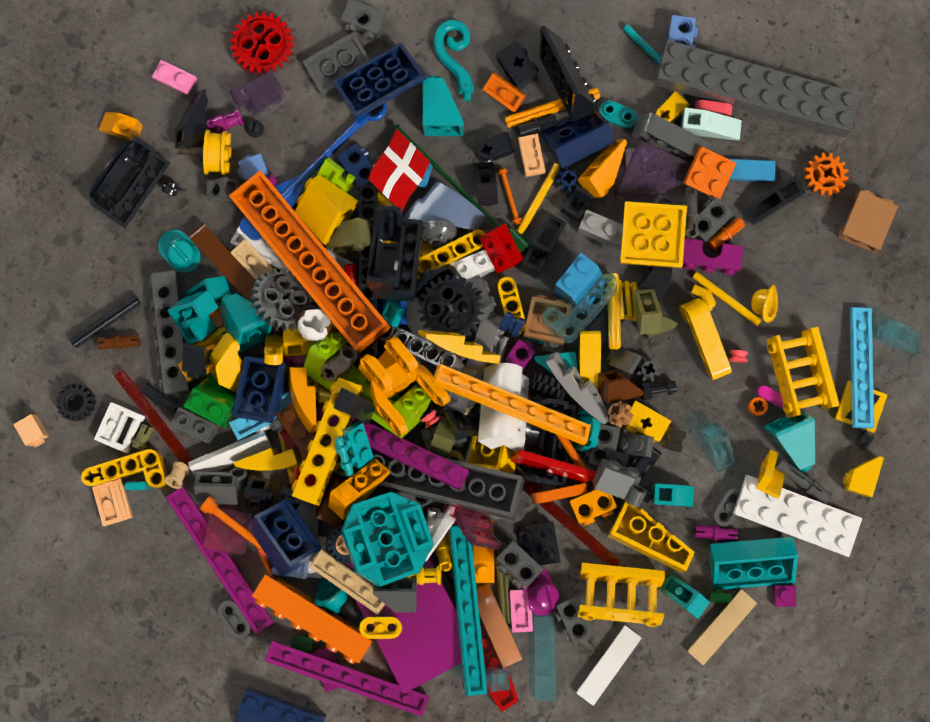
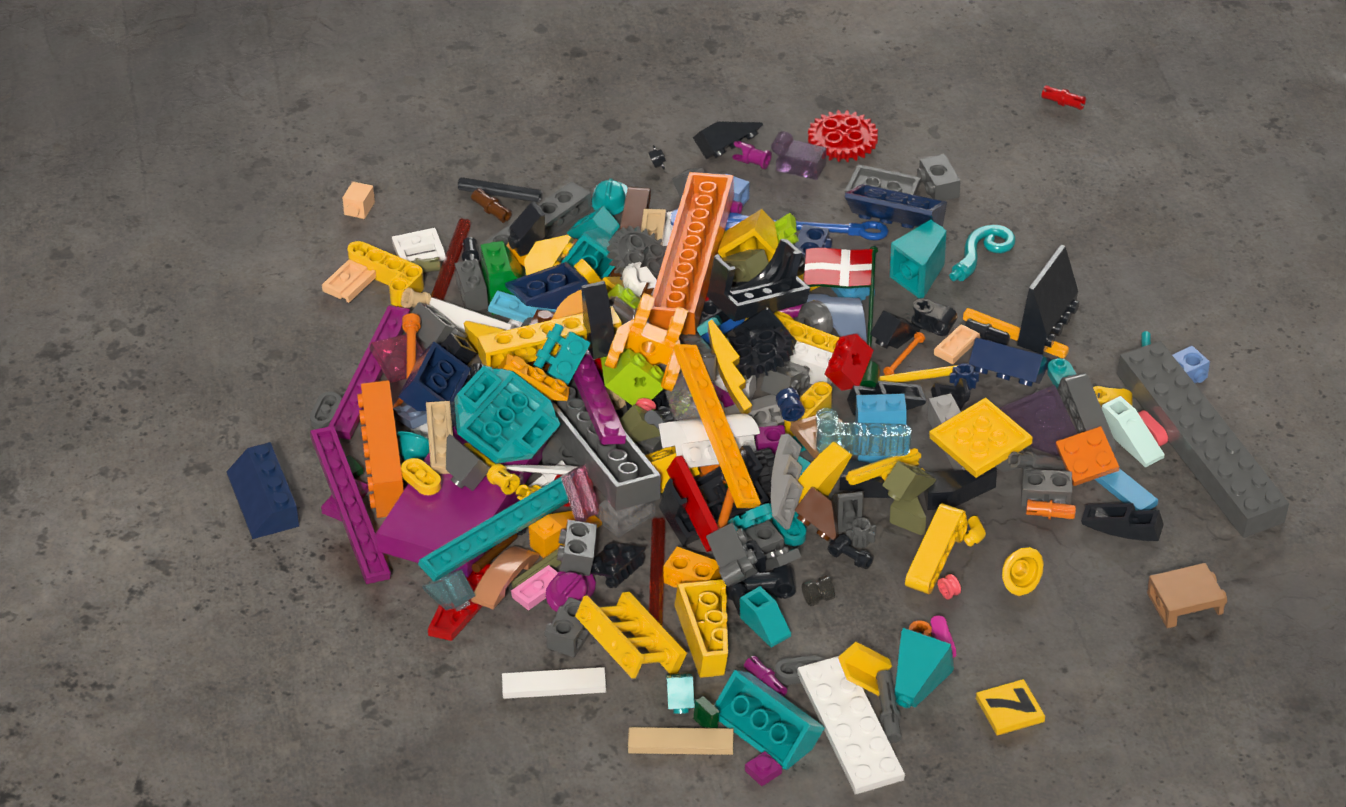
camera: 45 degrees right, 40 degrees down
(63, 402) = (404, 218): black tyre -> none
(119, 174) = (632, 129): black piece -> none
(120, 126) = (674, 104): light orange slope -> none
(132, 486) = (379, 285): teal tile -> none
(174, 77) = (751, 108): bright pink plate -> none
(192, 316) = (567, 215): teal brick -> none
(214, 152) = (716, 153): yellow wheel -> none
(255, 129) = (767, 175): black piece -> none
(504, 92) = (988, 293): orange plate -> none
(517, 54) = (1017, 285): black brick -> none
(544, 658) = (510, 635): clear light blue tile -> none
(559, 493) = (672, 534): orange beam -> none
(603, 170) = (1000, 388): light orange slope -> none
(620, 414) = (795, 524): medium nougat gear -> none
(657, 422) = (813, 560): yellow brick -> none
(718, 446) = (847, 624): clear light blue slope -> none
(726, 298) = (993, 549): yellow bar -> none
(727, 261) = (1003, 499): magenta arch -> none
(818, 169) = (1190, 539): orange gear -> none
(819, 367) = (997, 653): yellow fence -> none
(861, 368) = (1045, 679): medium azure tile -> none
(863, 477) = (946, 747): yellow slope -> none
(864, 440) = (981, 725): black bush -> none
(898, 336) = (1109, 687): clear light blue slope -> none

